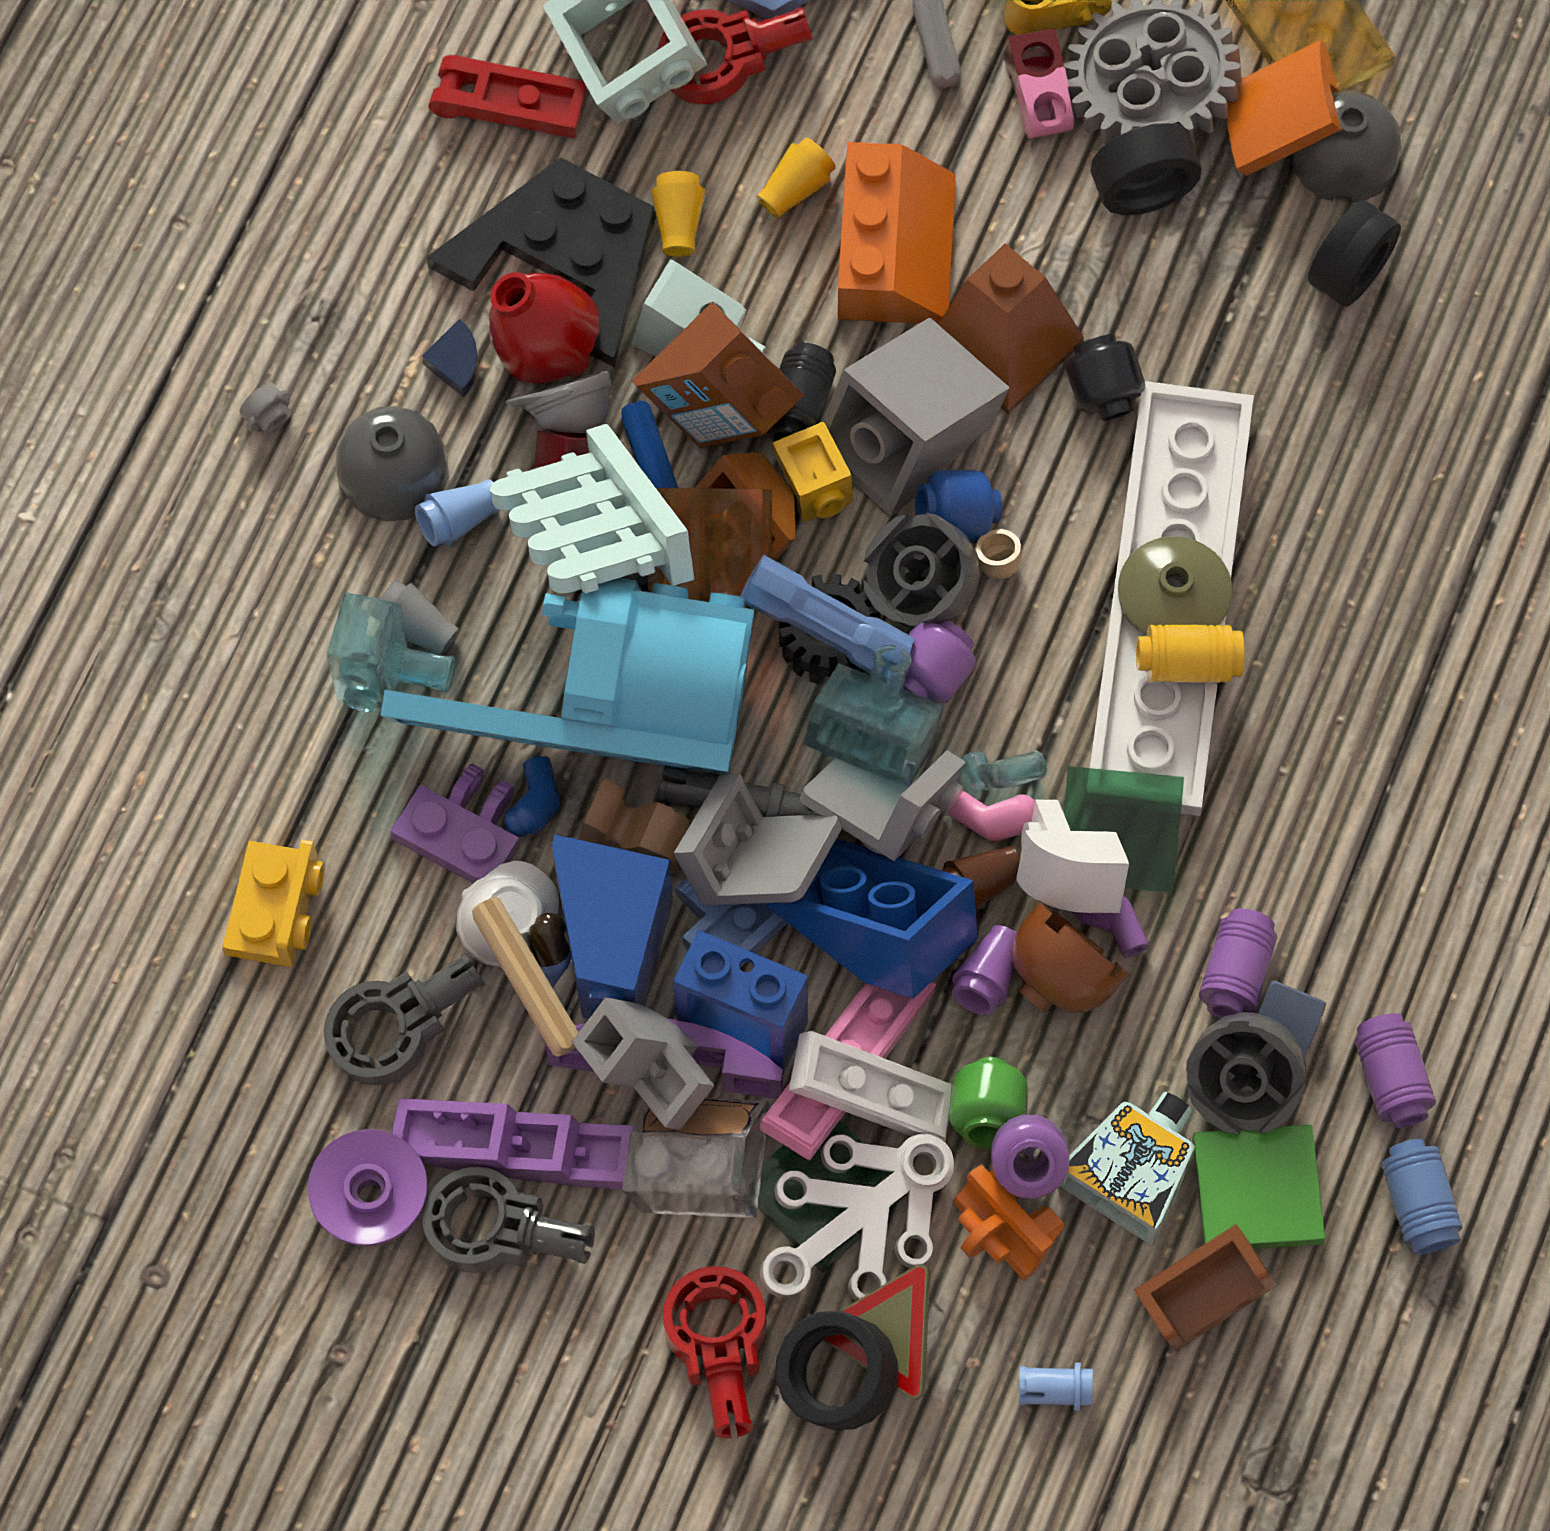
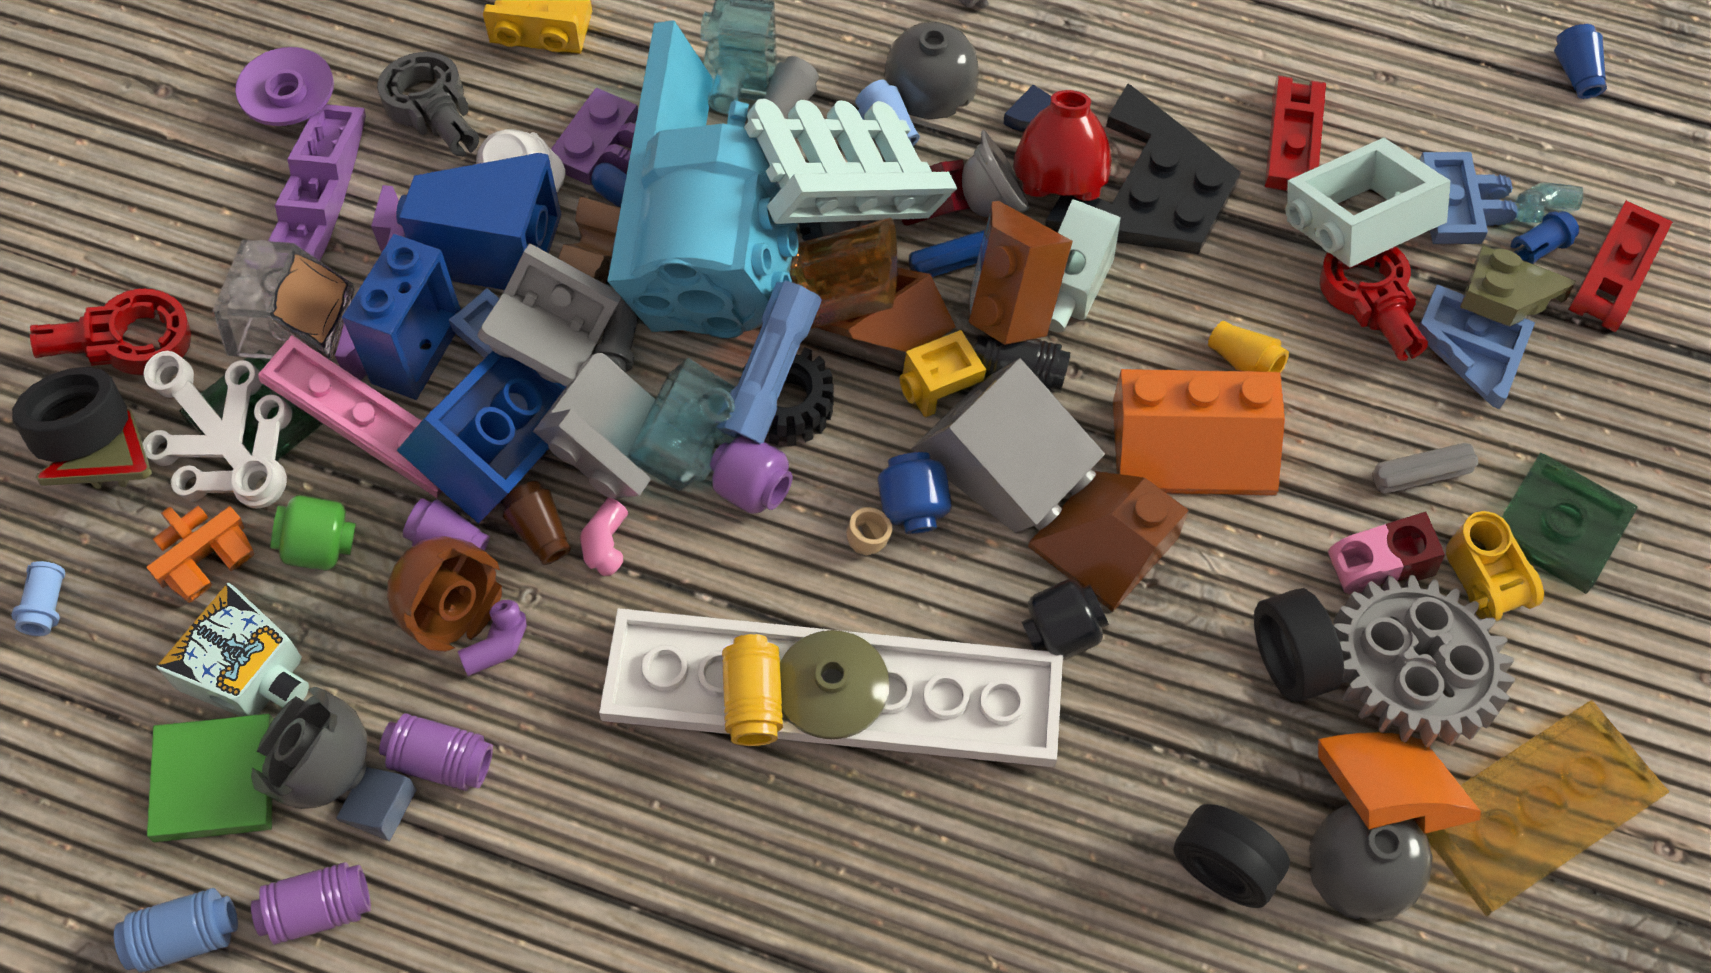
camera: 85 degrees right, 5 degrees down
(502, 1242) = (238, 187): dark grey pin -> none
(525, 975) = (436, 157): tan axle -> none
(648, 1052) = (359, 230): light grey brick -> none
(678, 210) = (1199, 261): yellow cone -> none
(870, 1086) = (320, 421): white tile -> none
(921, 570) = (832, 454): dark grey cylinder -> none
(1001, 774) = (642, 542): clear light blue arm -> none
(1037, 1174) = (234, 551): medium lavender head -> none
(1070, 867) = (522, 583): white brick -> none
(1141, 811) = (579, 640): clear green tile -> none
(1205, 1287) = (101, 716): dark orange panel -> none

